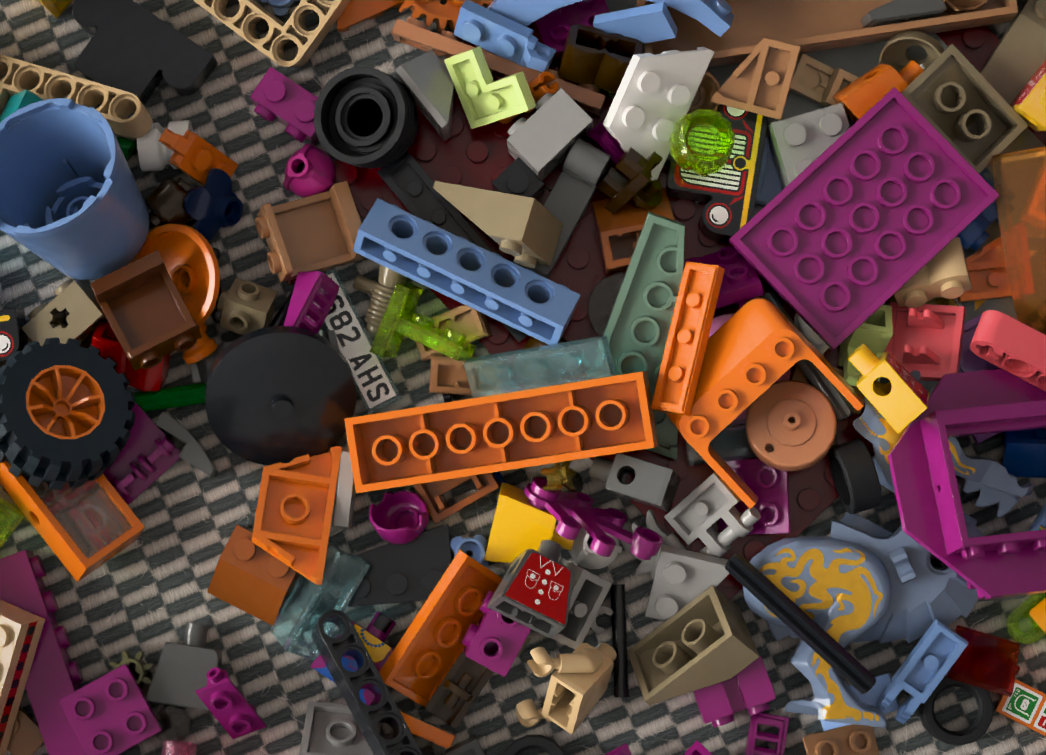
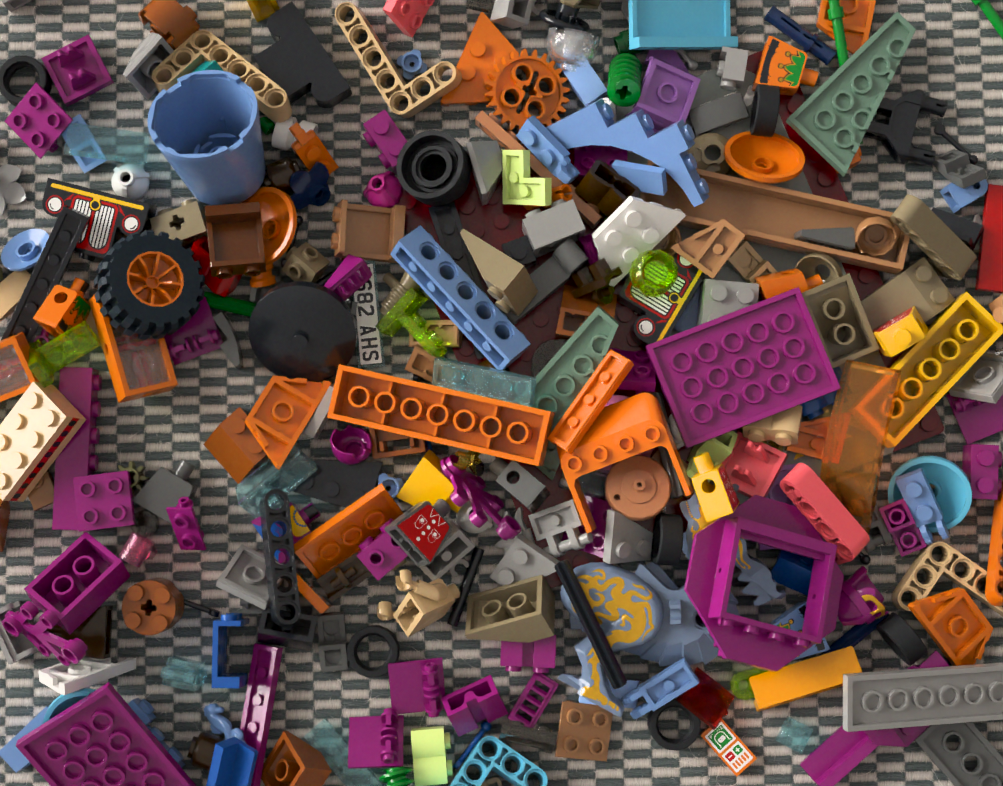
camera: 15 degrees right, 0 degrees up
(801, 498) = (625, 540): none -> light grey wing

